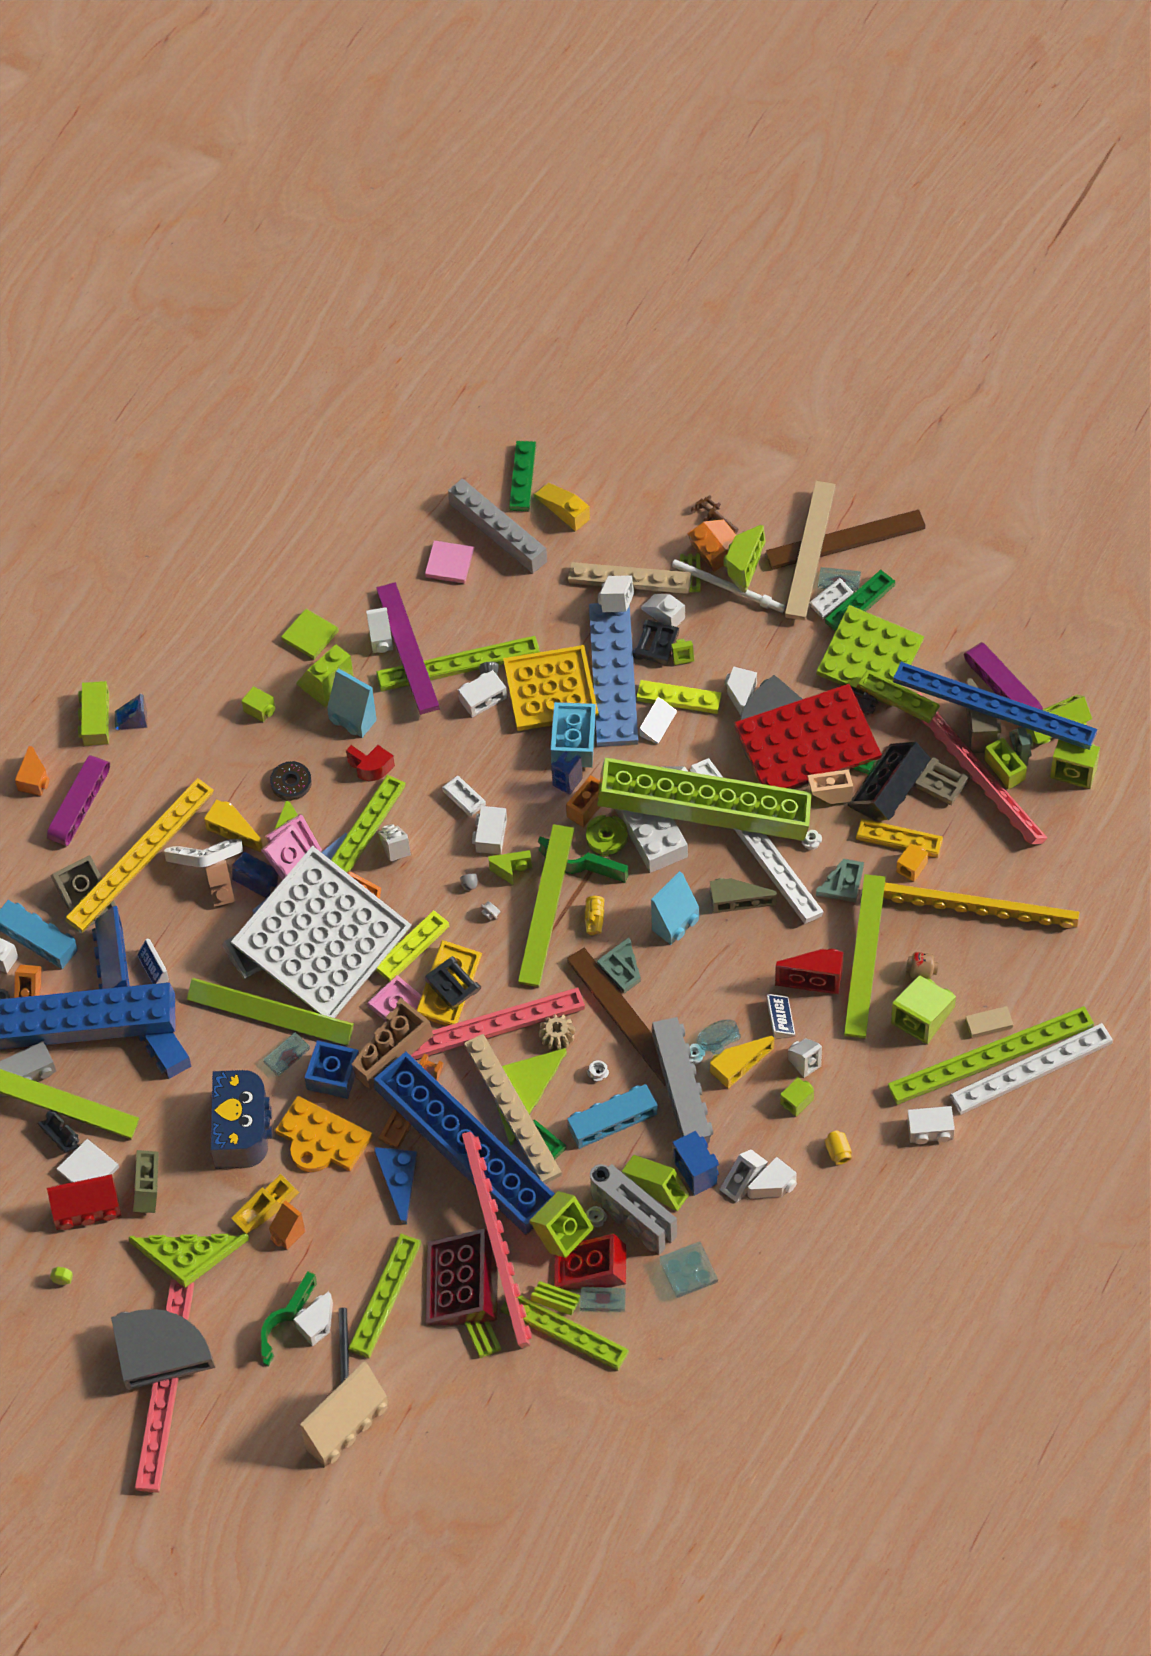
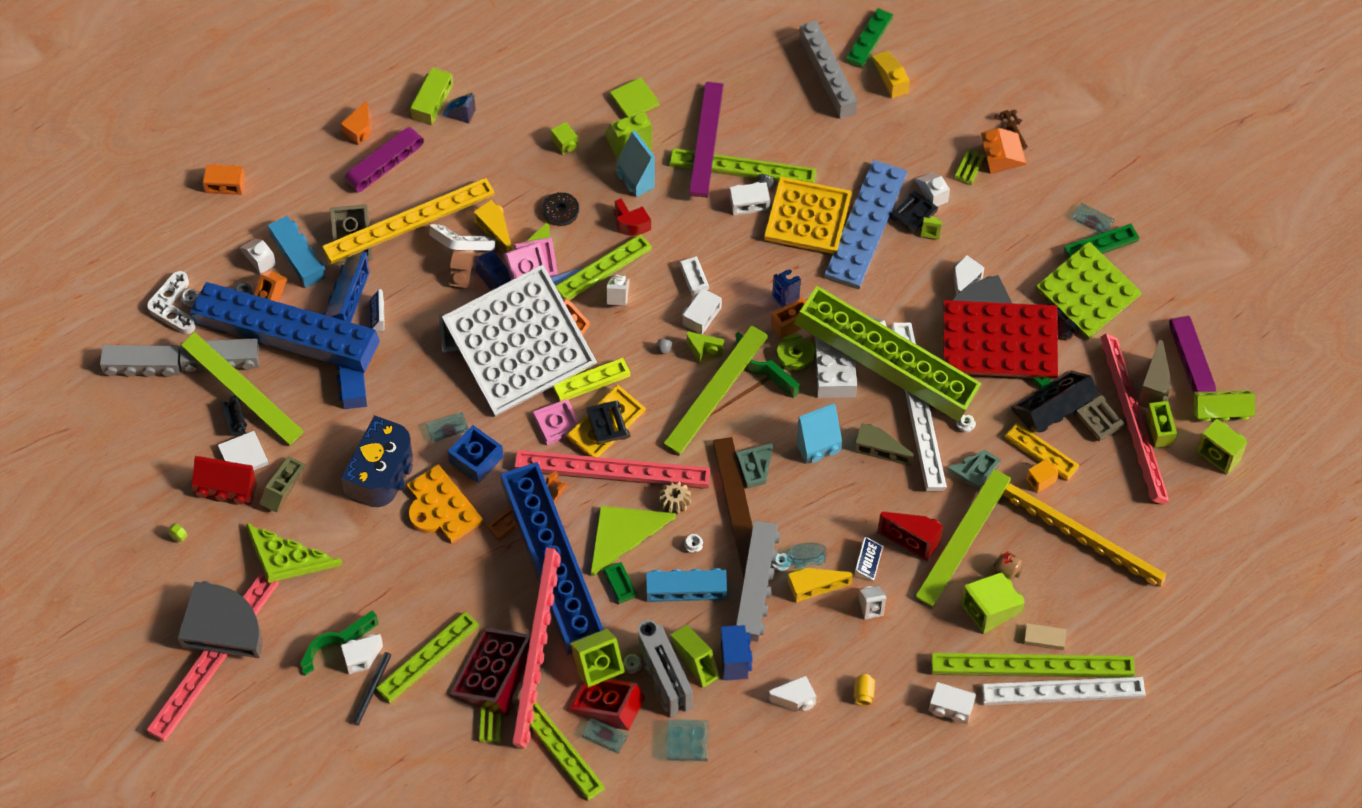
camera: 20 degrees right, 0 degrees up
(265, 1204) = (368, 541): yellow slope -> none
(270, 1011) = (451, 387): lime tile -> none
(287, 1226) = (374, 567): orange slope -> none
(344, 1415) = (340, 741): tan slope -> none
(379, 630) = (689, 116): white slope -> none
(399, 1172) = (488, 562): blue wing -> none
(401, 1032) = (545, 446): medium nougat wedge -> none
(449, 562) = (775, 84): bright pink tile -> none
(490, 910) = (669, 376): white plate -> none
(512, 1109) = (606, 547): tan plate -> none
(555, 1298) = (563, 715): lime tile -> none
(573, 732) = (808, 258): medium azure slope -> none
(594, 914) = (753, 413): yellow hinge -> none
(616, 594) = (898, 159): white brick -> none
(642, 578) = (917, 151): tan plate -> none
(657, 721) = (883, 276): slope -> none
(679, 696) = (911, 263): neon yellow plate -> none
(743, 1172) = (773, 676): white slope -> none
(744, 556) = (1019, 169): lime wedge -> none
(765, 601) = (1020, 212): white bar -> none
(797, 1096) = (850, 632): lime brick -> none
(810, 550) = (1078, 186): tan tile -> none
(831, 598) = (1077, 231): white plate -> none
(832, 786) = (1002, 385): light nougat slope -> none
(851, 538) = (1114, 188): reddish brown tile -> none
(898, 696) = (1095, 332): lime tile -> none
(995, 705) = (1172, 371): blue plate -> none
(1021, 743) = (1183, 414): sand green wing -> none

